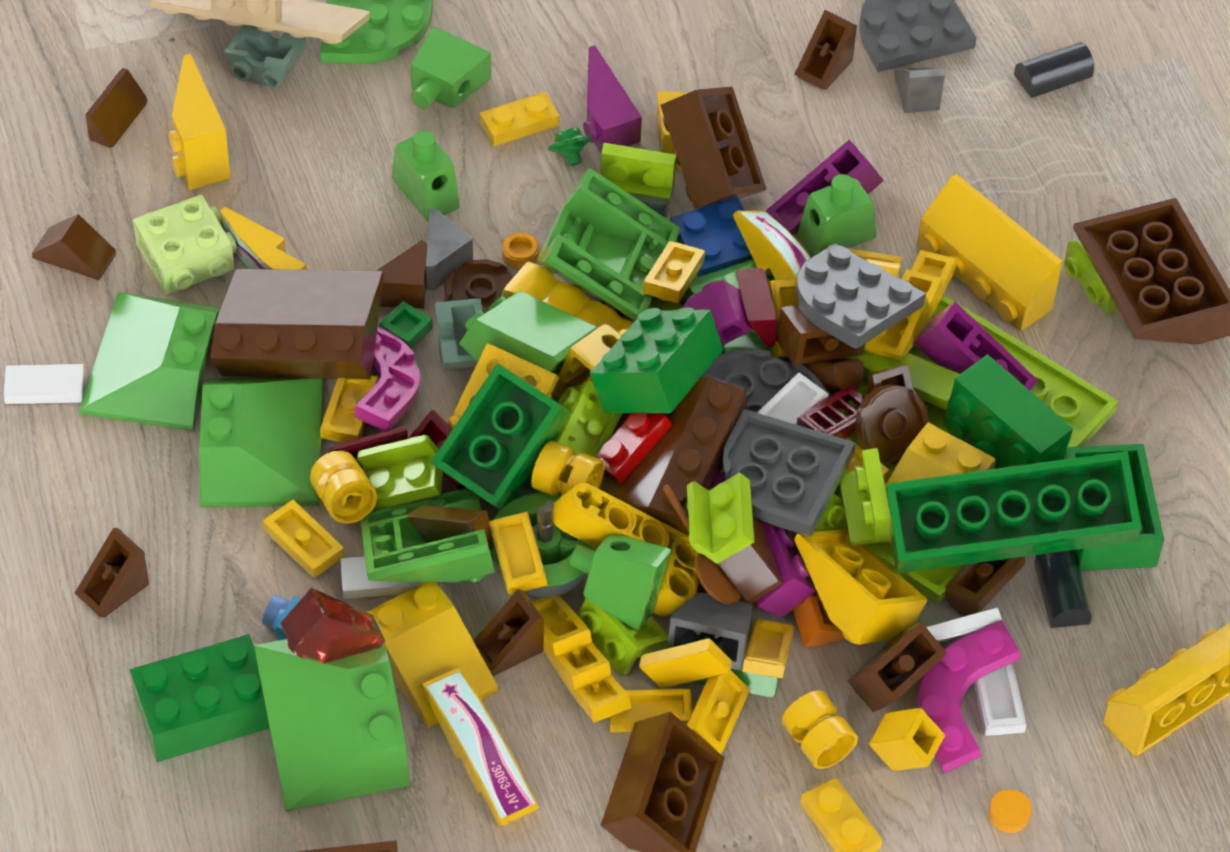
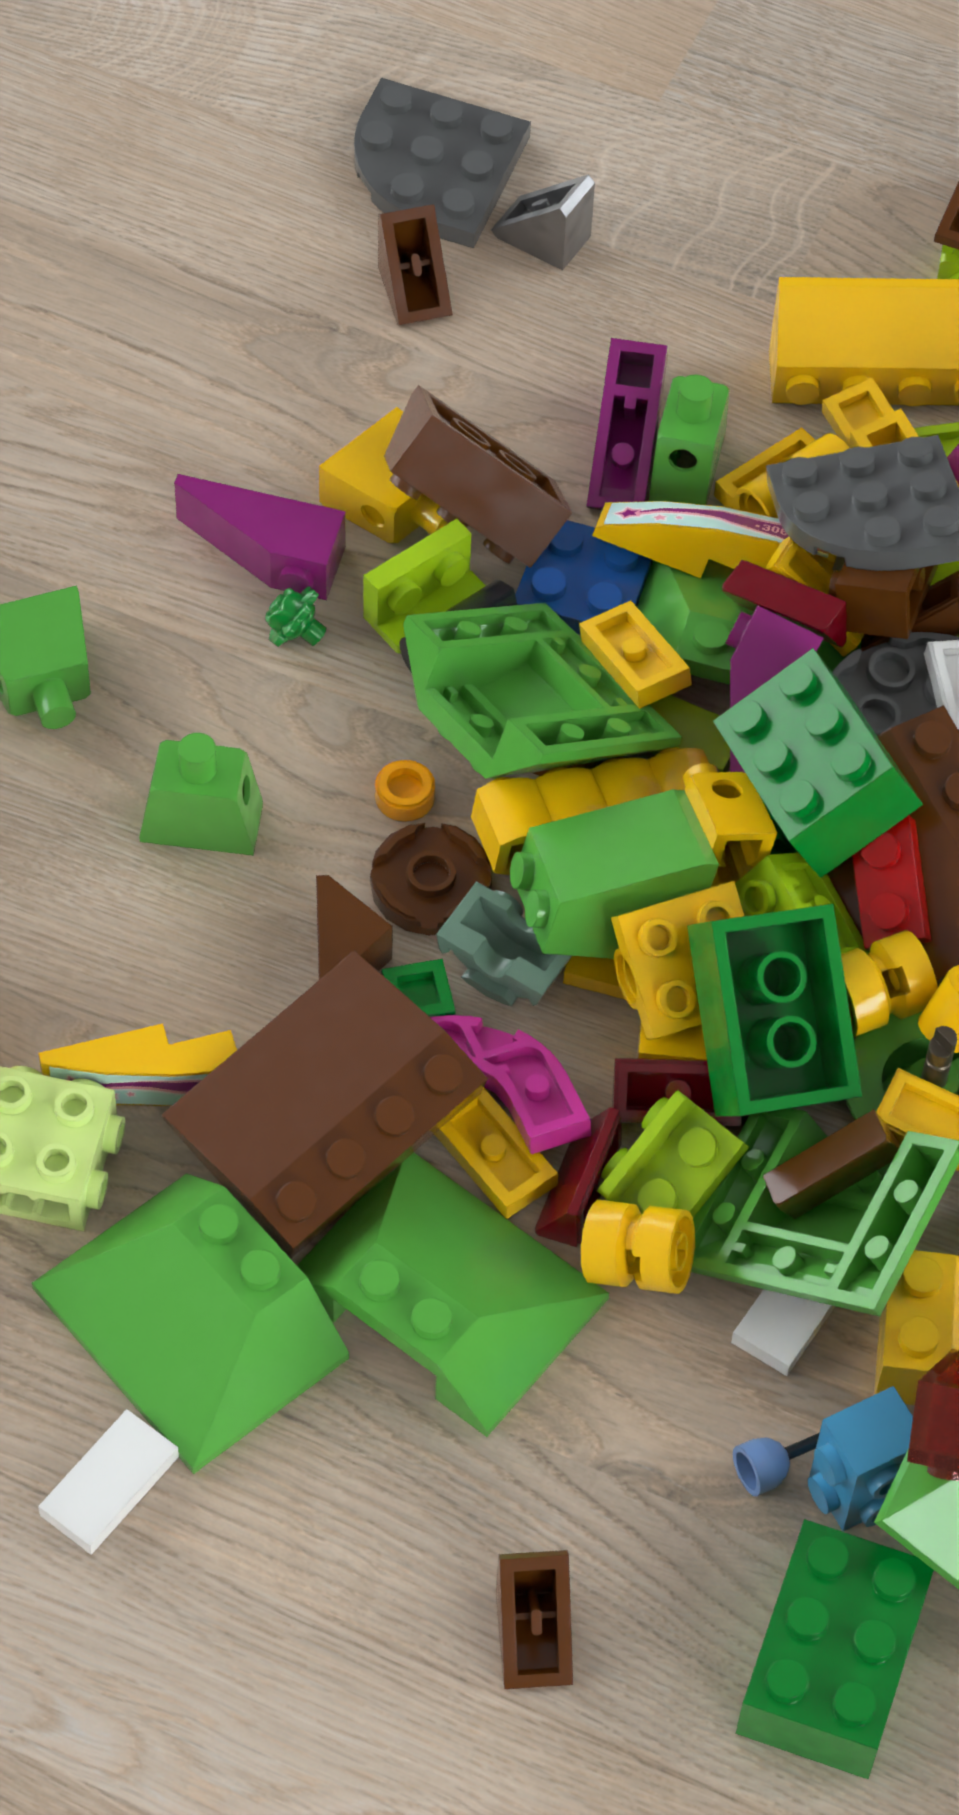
camera: 50 degrees left, 5 degrees up
(303, 538) = (664, 1352): yellow plate -> none
(446, 249) = (326, 849): flat silver slope -> none
(519, 118) = (187, 639): yellow plate -> none
(1055, 69) = (649, 88): black brick -> none

